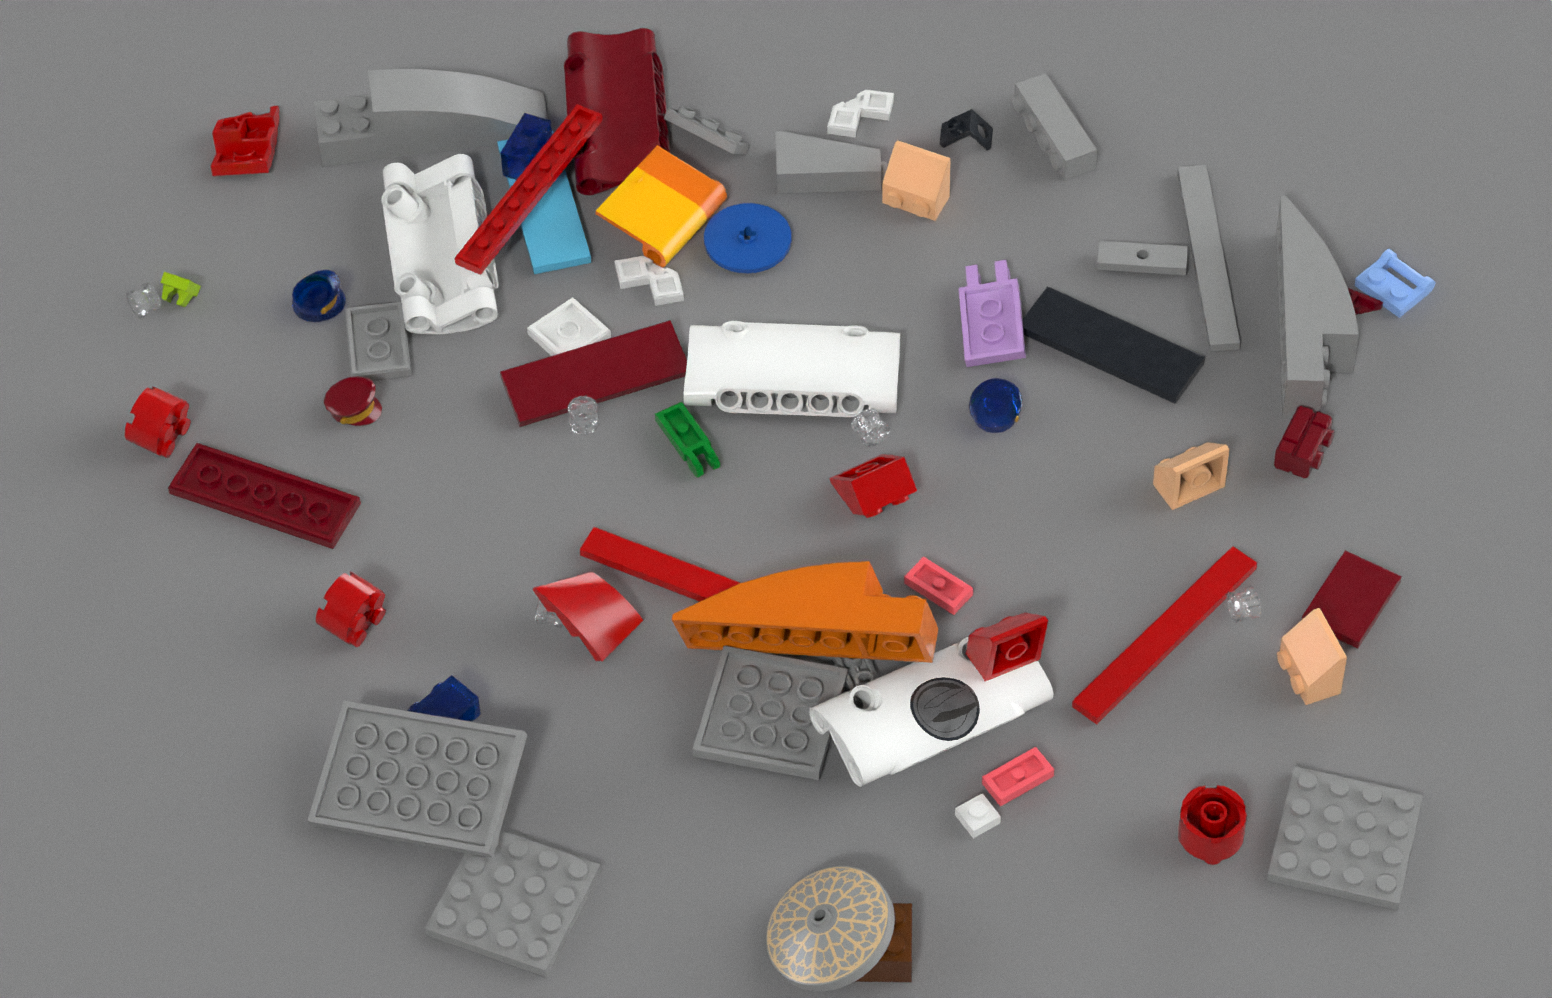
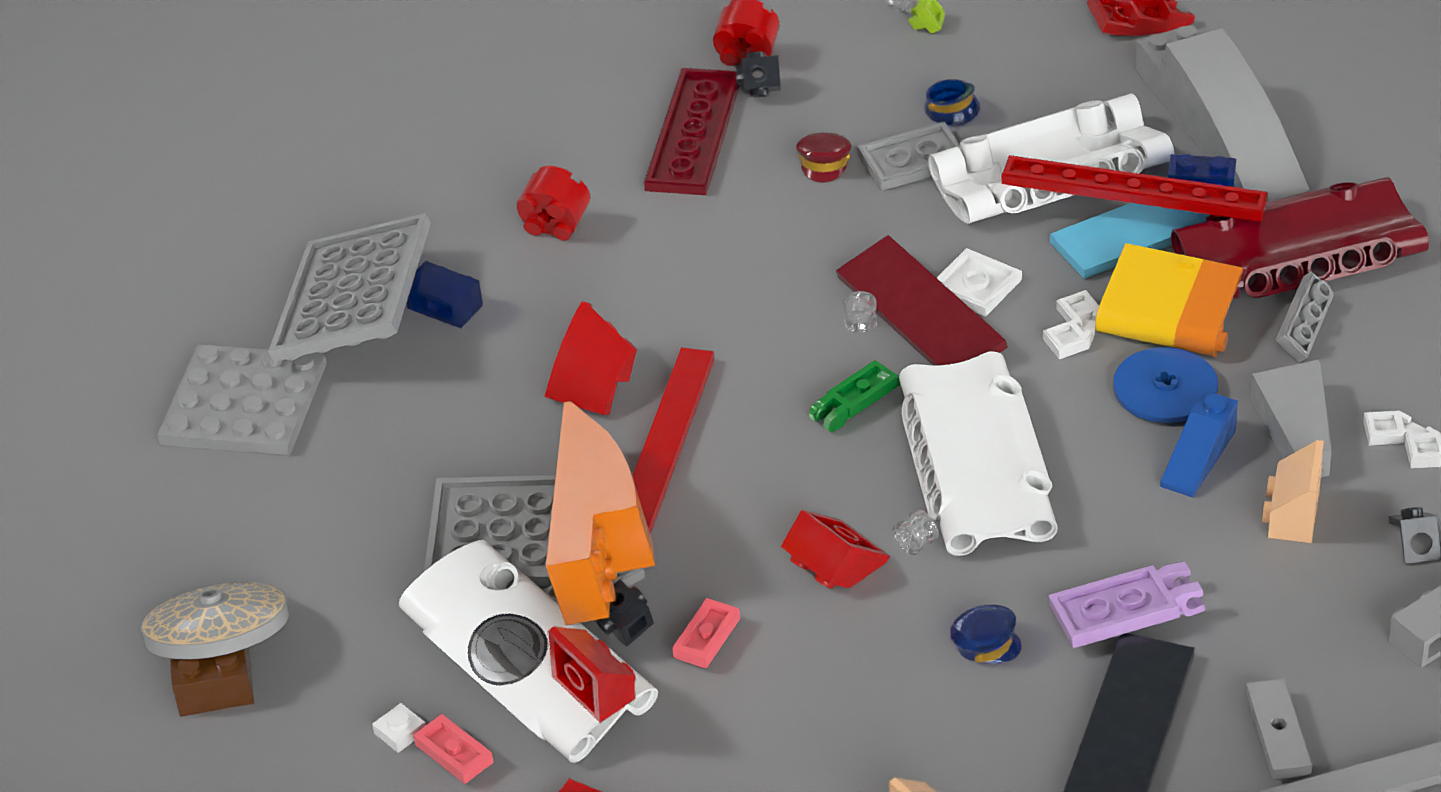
camera: 80 degrees right, 10 degrees down
(220, 423) = (759, 63): none -> black brick
(830, 229) = (1200, 443): none -> blue slope

